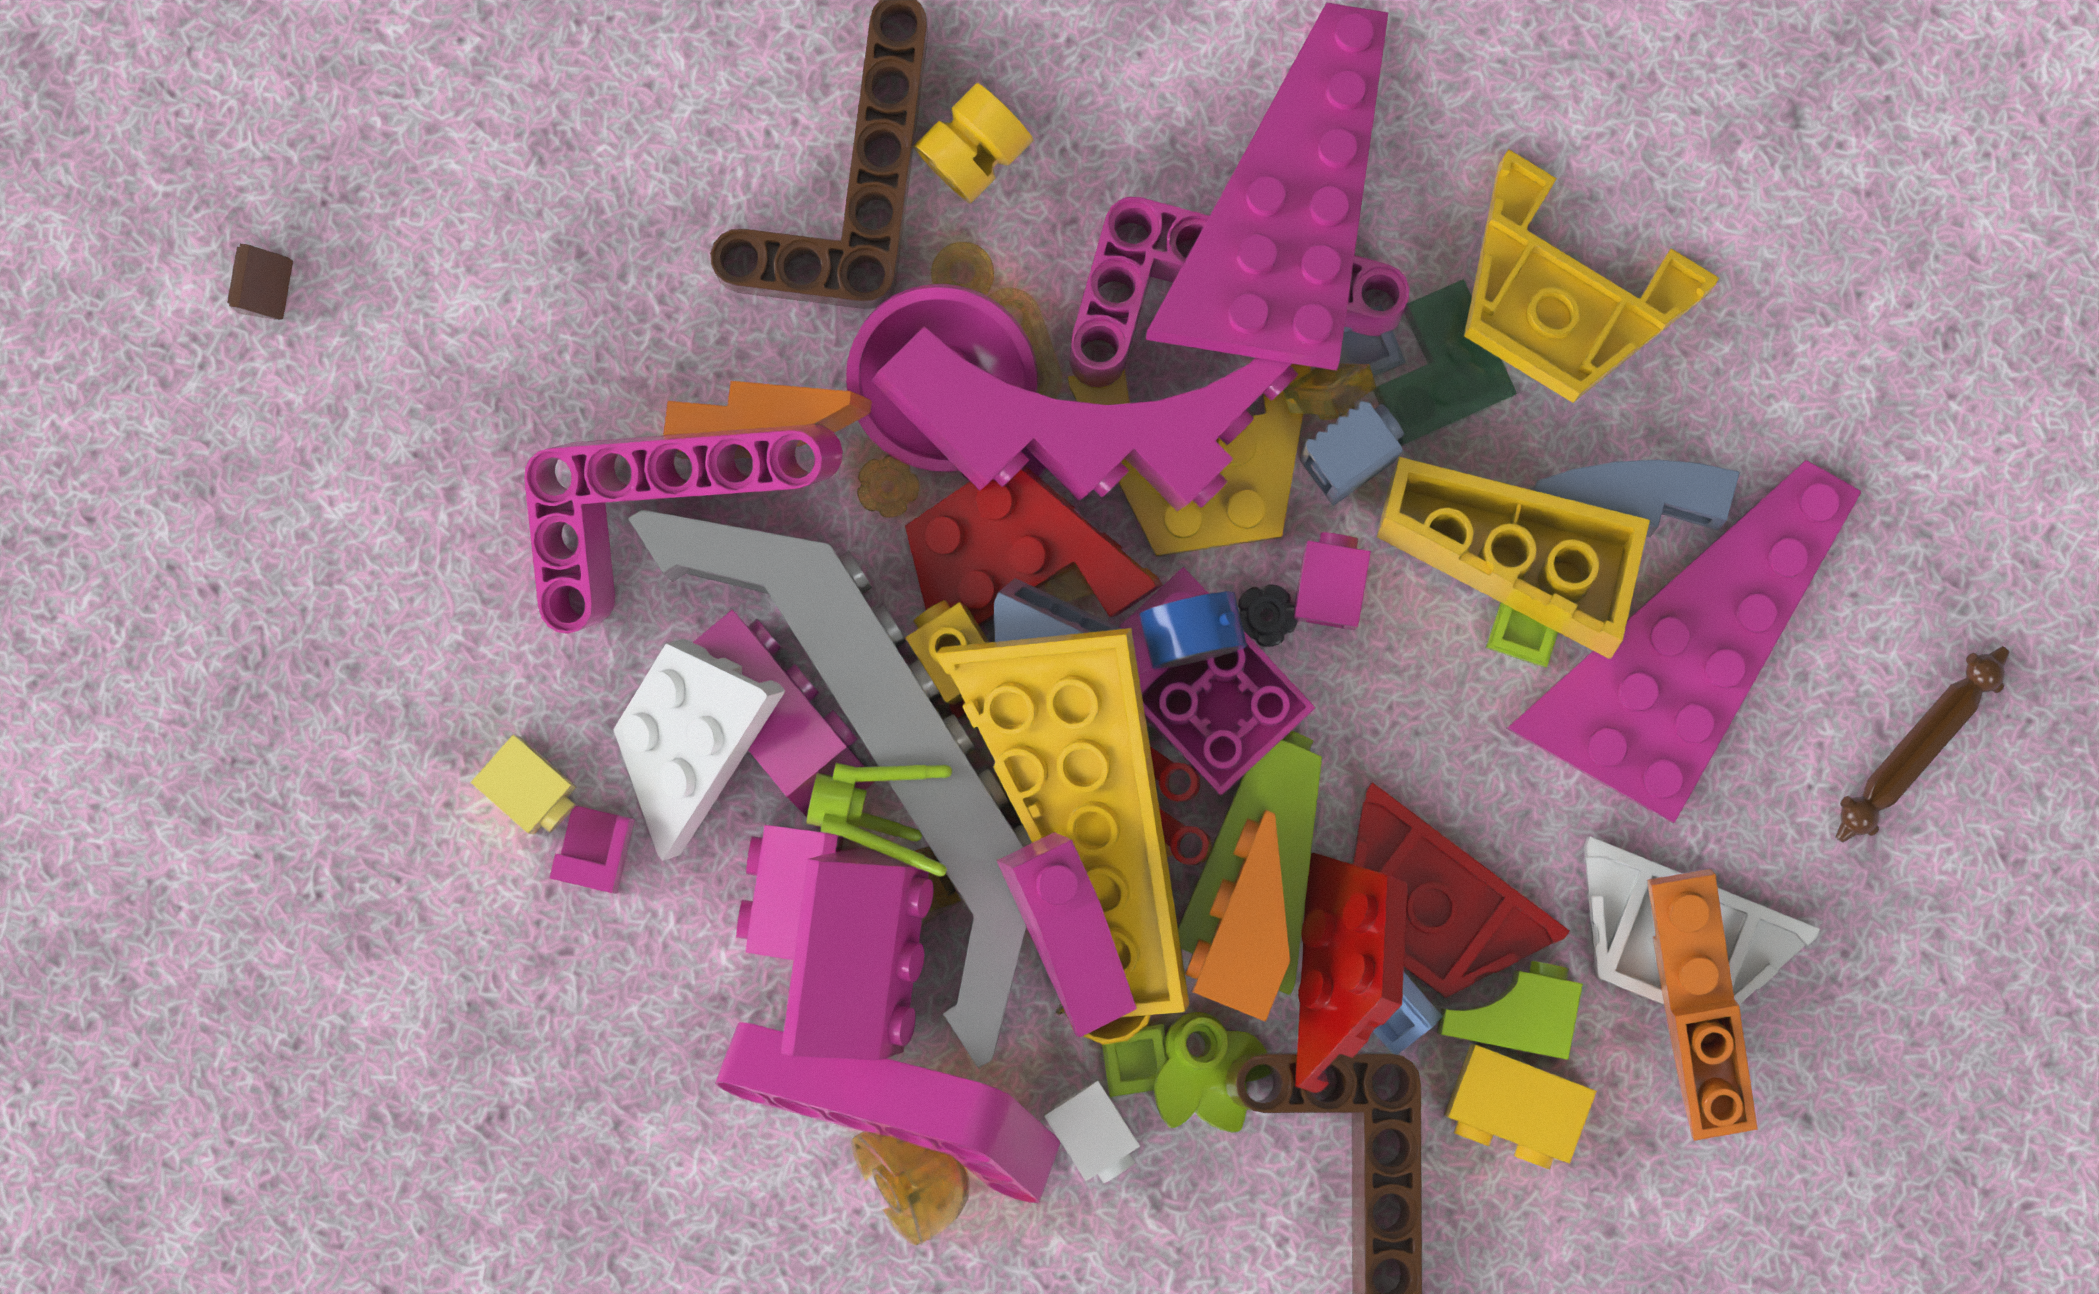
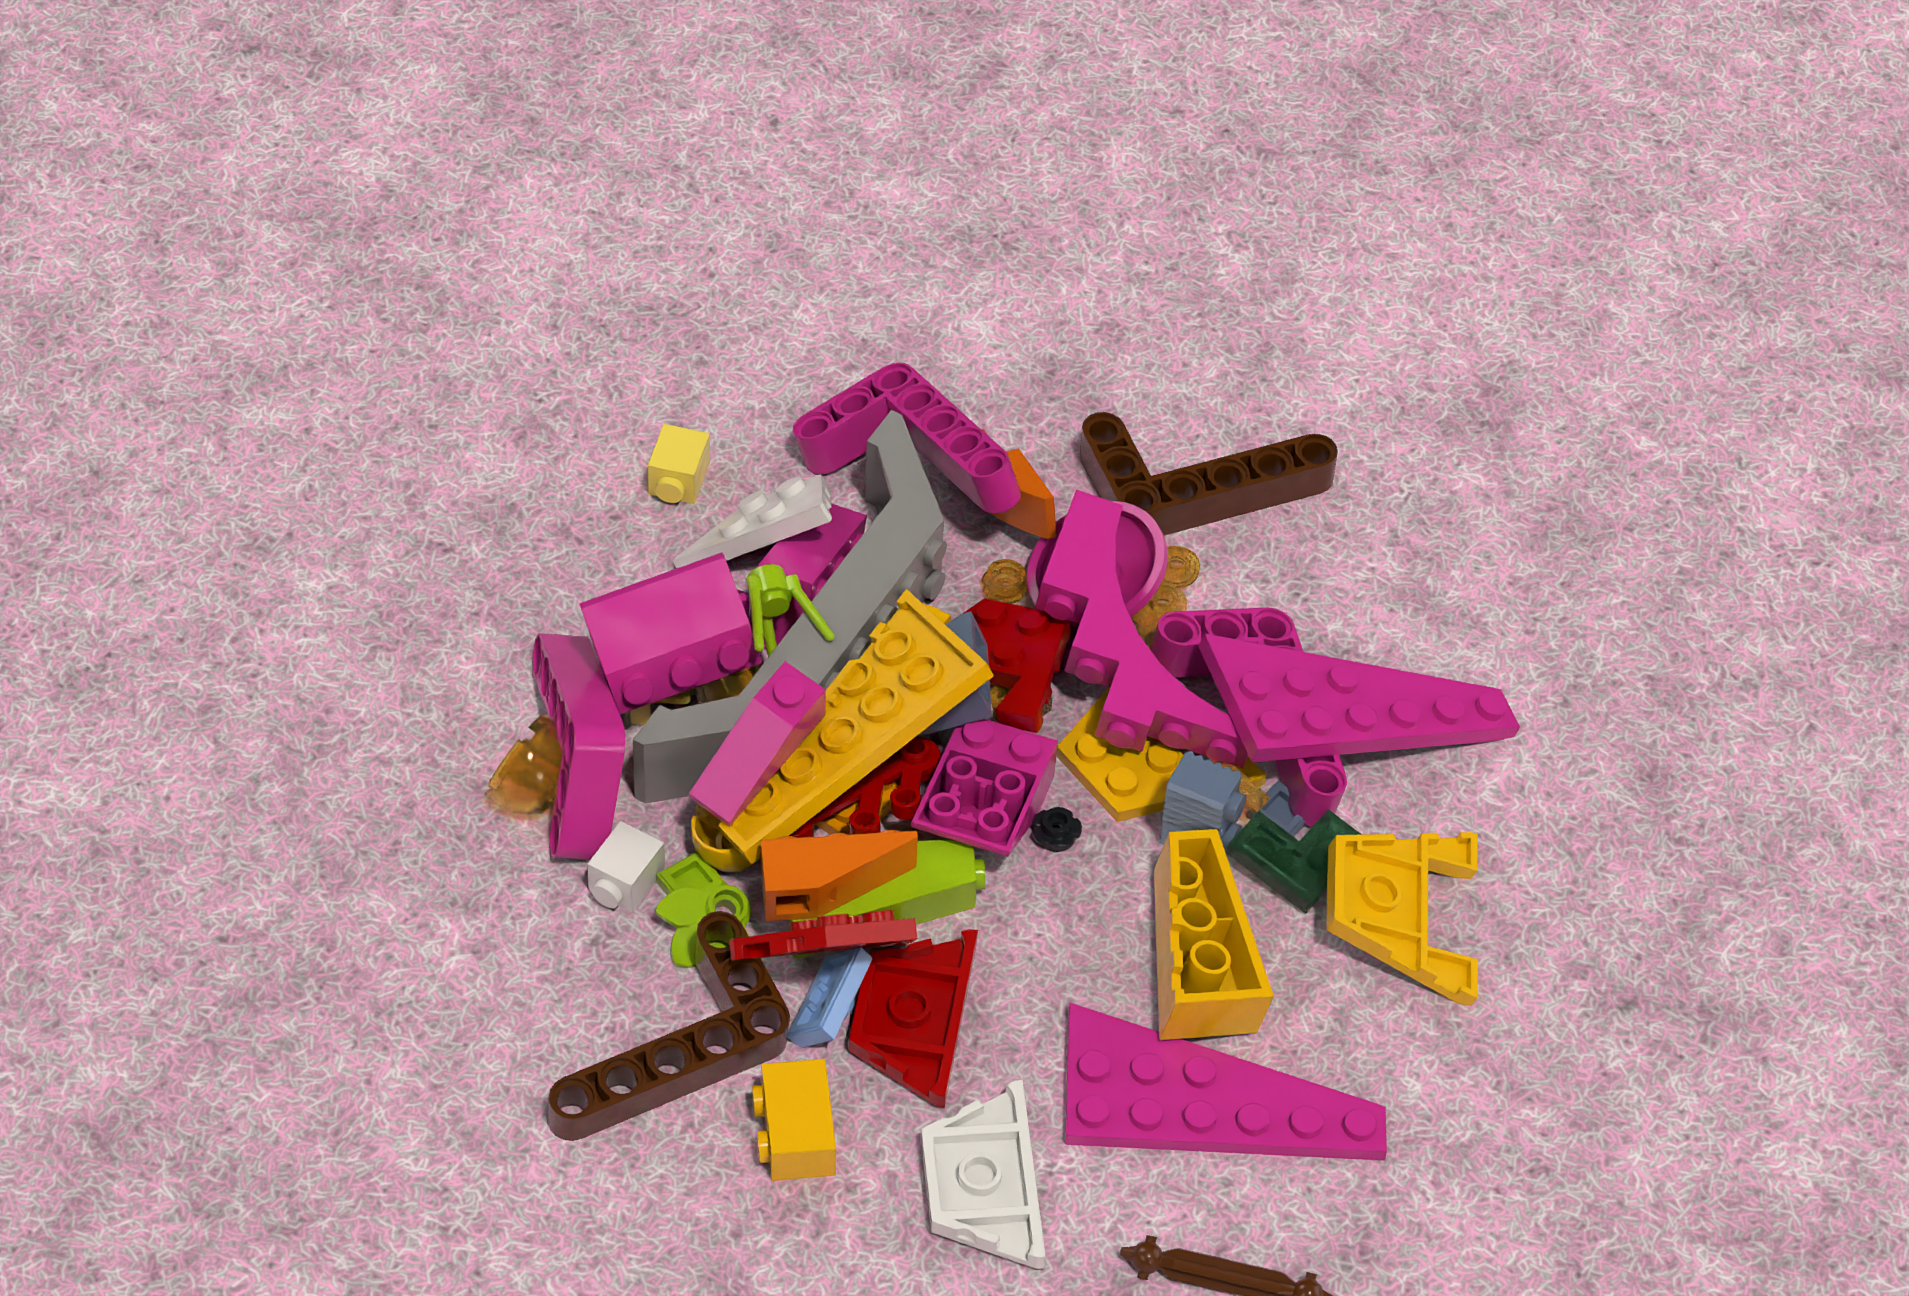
camera: 60 degrees right, 35 degrees down
(259, 282) = (921, 213): reddish brown slope -> none
(593, 850) = (655, 526): dark pink panel -> none
(973, 143) = (1281, 534): yellow wheel -> none
(1192, 629) = (1016, 732): blue piece -> none
(1332, 582) = (1103, 850): dark pink brick -> none
(1521, 637) = (1139, 989): lime tile -> none
(1529, 1016) = (866, 1095): lime arch -> none
(1650, 489) = (1299, 1015): sand blue slope -> none
(1701, 1005) = (944, 1187): orange slope -> none

